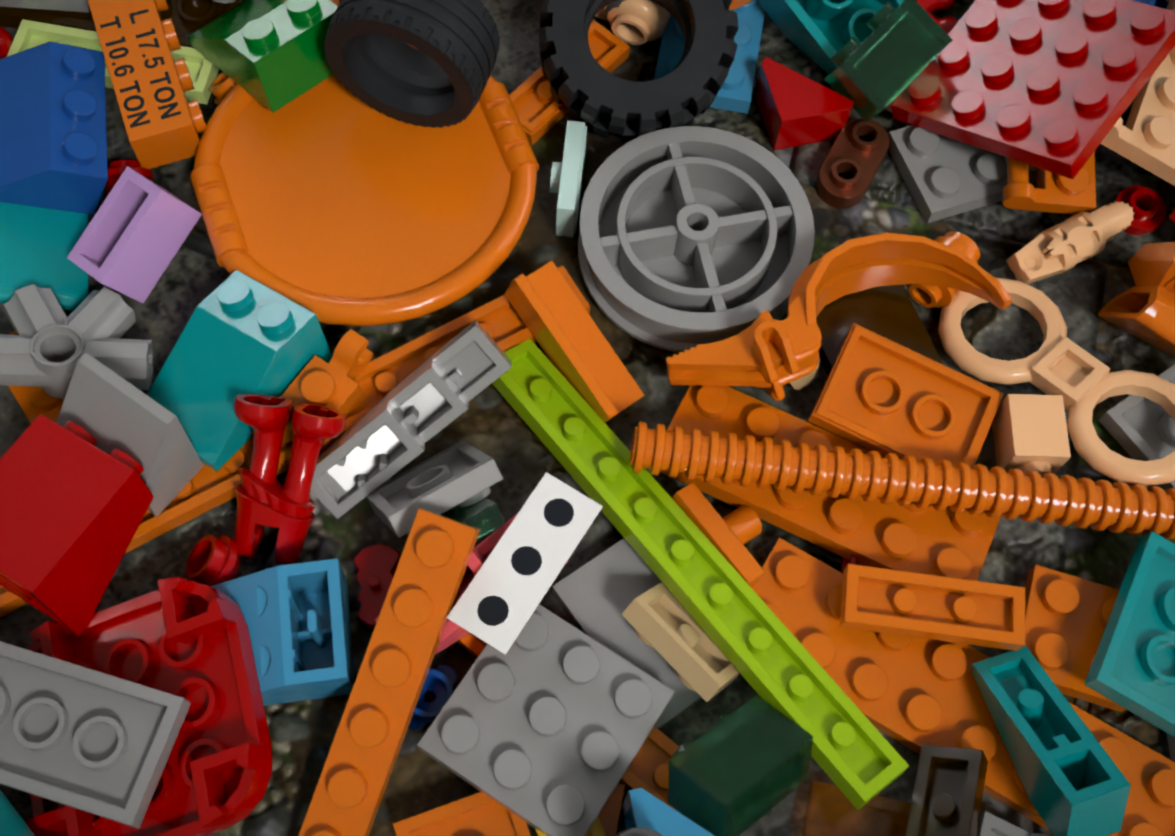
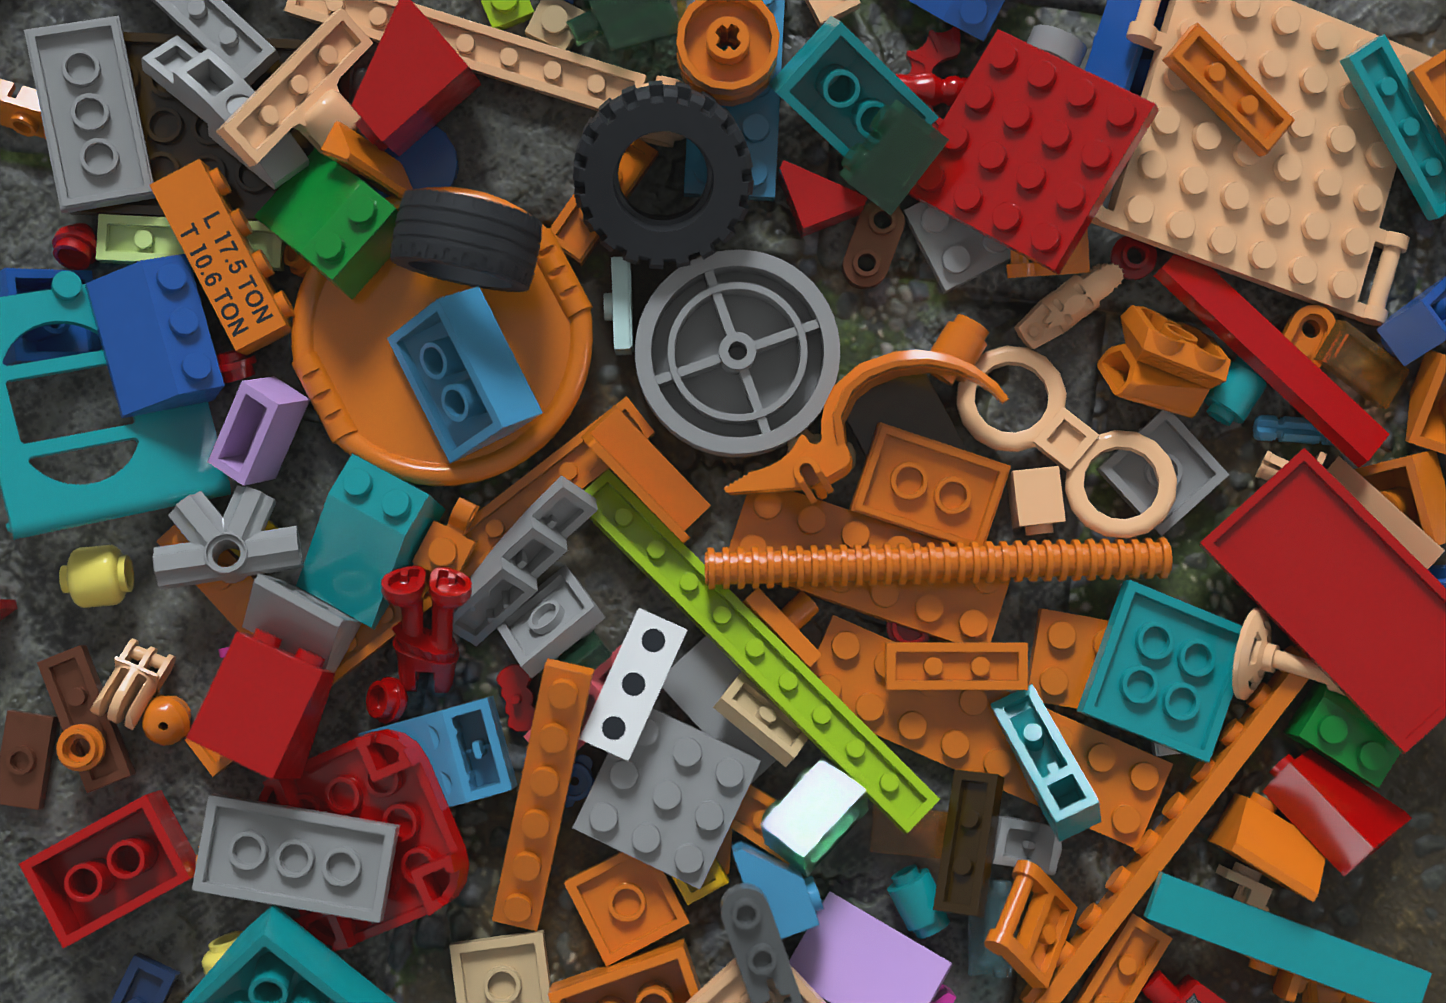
camera: 10 degrees left, 20 degrees up
(382, 195) = (464, 373): none -> dark azure slope

